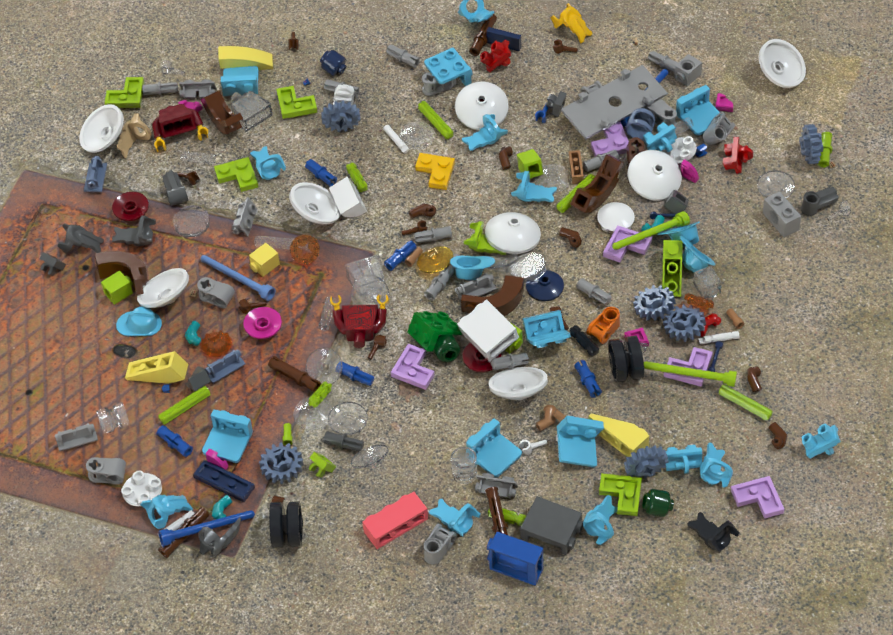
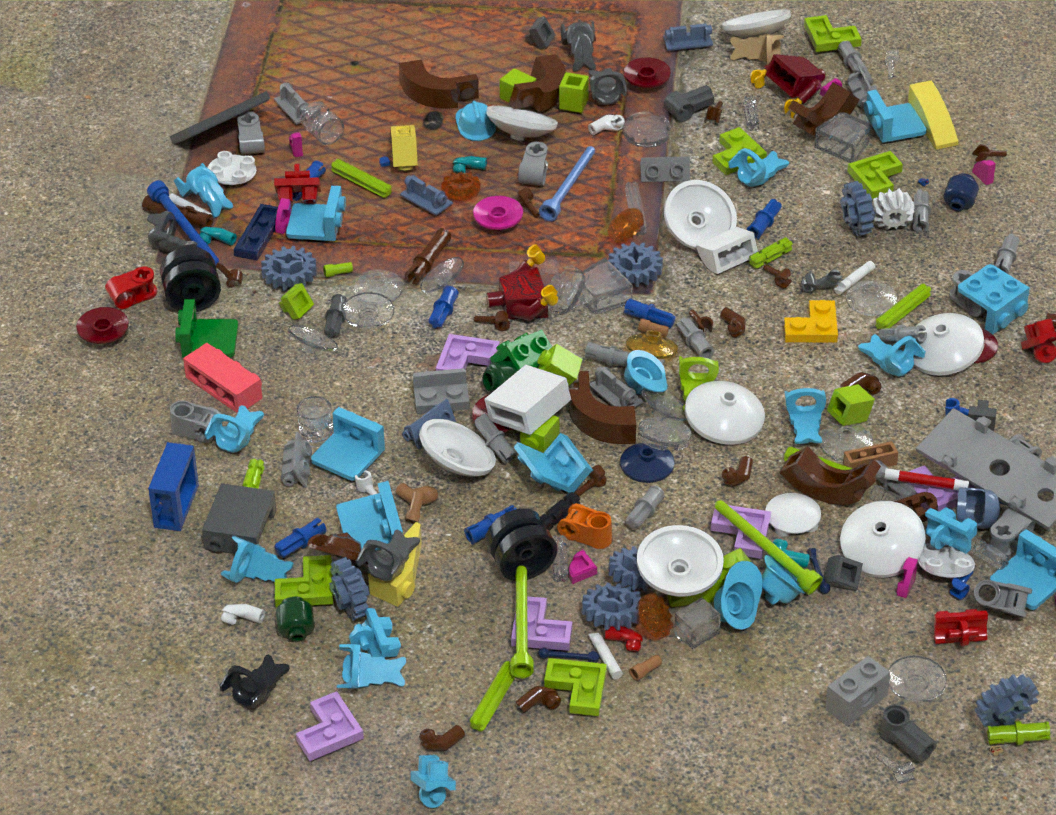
camera: 75 degrees right, 10 degrees down
(81, 486) = (220, 117): none -> dark grey tile
(92, 346) = (433, 90): none -> reddish brown arch
(126, 441) = (295, 143): none -> dark pink tile
(143, 249) = (573, 92): none -> lime brick
(176, 242) = (608, 123): none -> white arm
(191, 439) = (298, 182): none -> red hips
(198, 379) = (394, 175): dark grey slope -> none
(264, 259) = (599, 195): light yellow brick -> none
(270, 572) = (131, 288): none -> red piece
(309, 587) = (102, 325): none -> dark red dish
(312, 46) = (985, 171): none -> dark pink tile
(319, 395) = (398, 279): lime axle -> none
(341, 526) = (197, 332): none -> green bracket
(346, 251) = (637, 263): none -> sand blue gear
(385, 174) = (781, 277): none -> reddish brown hand
(397, 153) = (828, 281): none -> dark grey arm
(447, 389) = (436, 386): none -> light grey bracket
(454, 309) = (560, 362): none -> lime brick
(471, 122) = (893, 335): none -> light grey axle
(473, 393) = (440, 411): none -> sand blue hinge
(496, 511) = (238, 465): reddish brown pin -> none
(575, 491) = (299, 538): none -> blue axle
(610, 461) = (337, 545): none -> reddish brown hat
(614, 137) = (923, 479): none -> red bar
(630, 434) = (391, 559): none -> dark grey hair
(638, 536) = (244, 611): none -> white arm
(670, 272) = (683, 551): none -> white dish
(744, 350) = (582, 678): none -> lime plate

